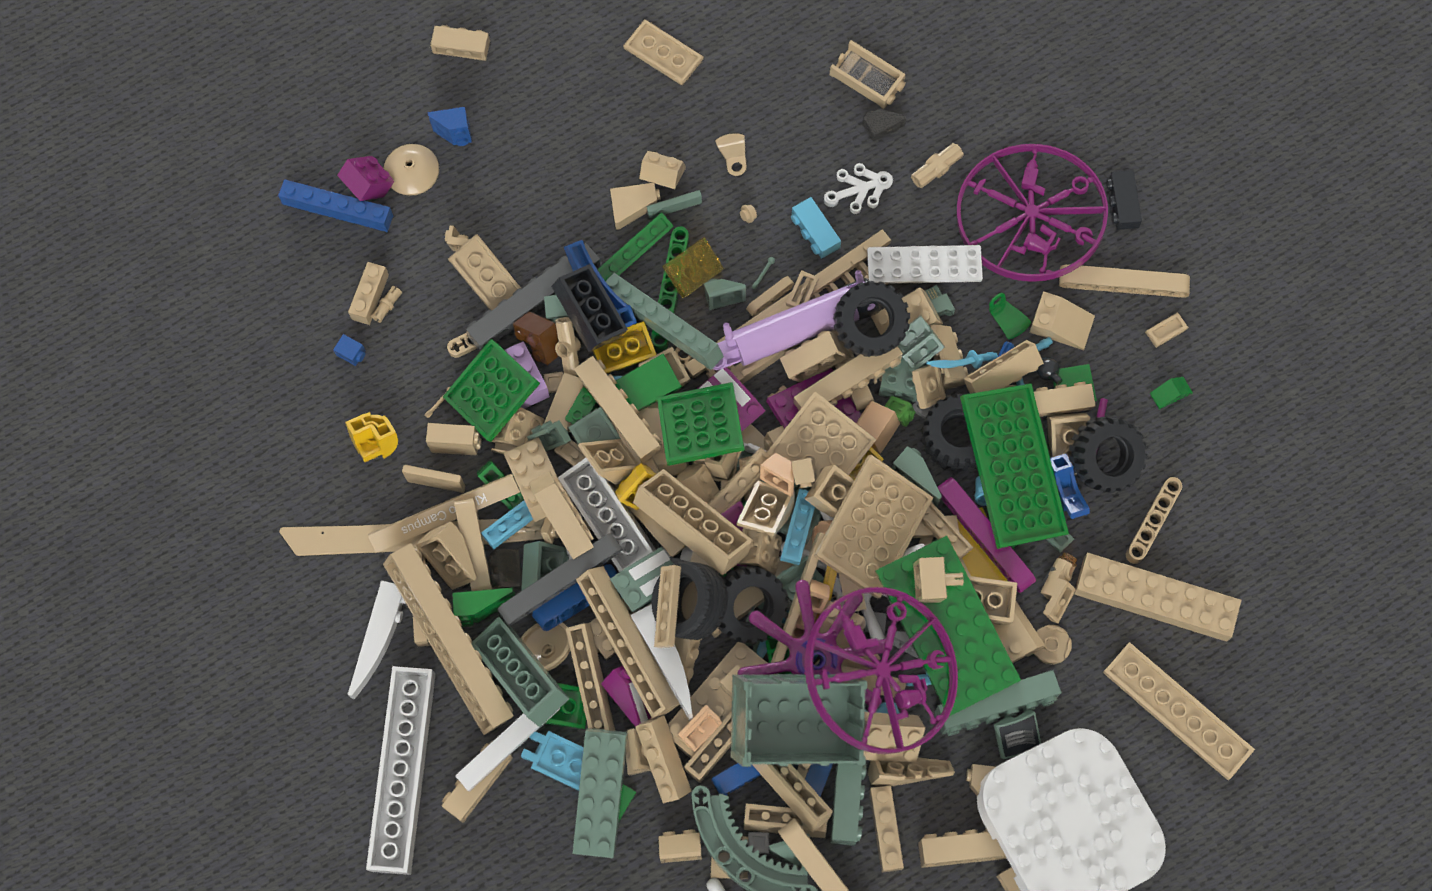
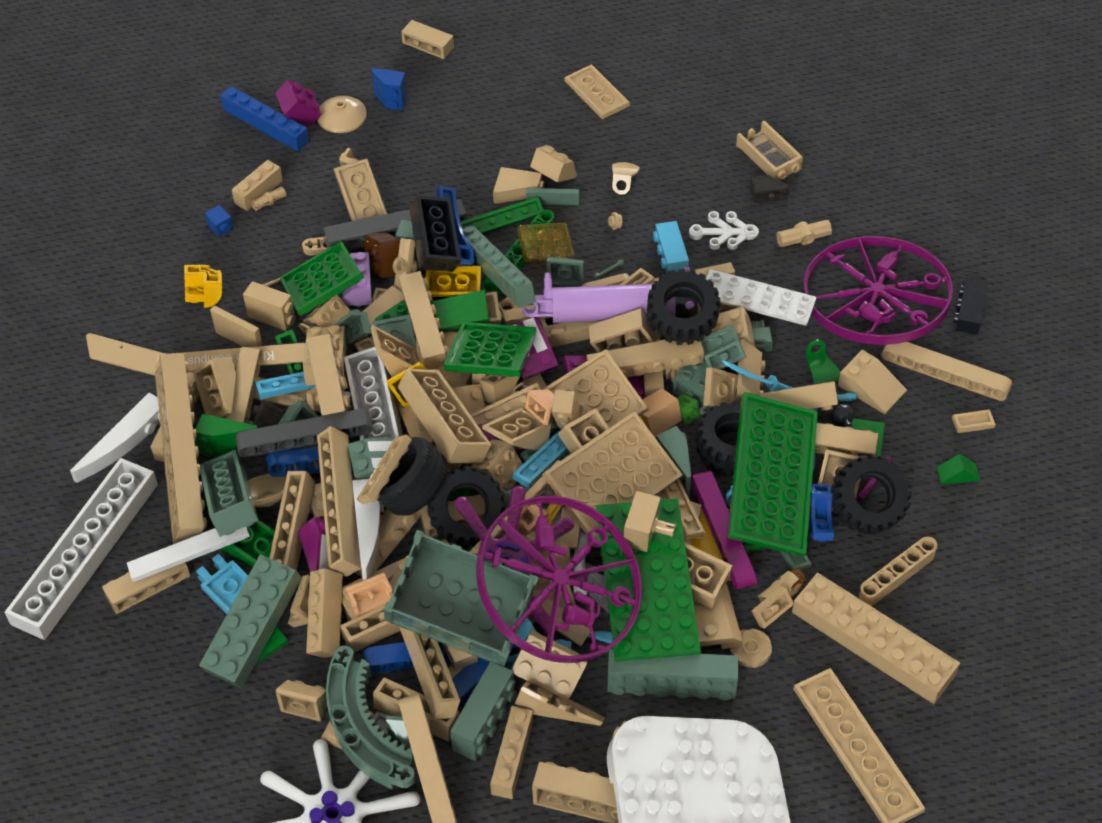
camera: 20 degrees right, 20 degrees down
(1017, 734) = (681, 702): slope -> none

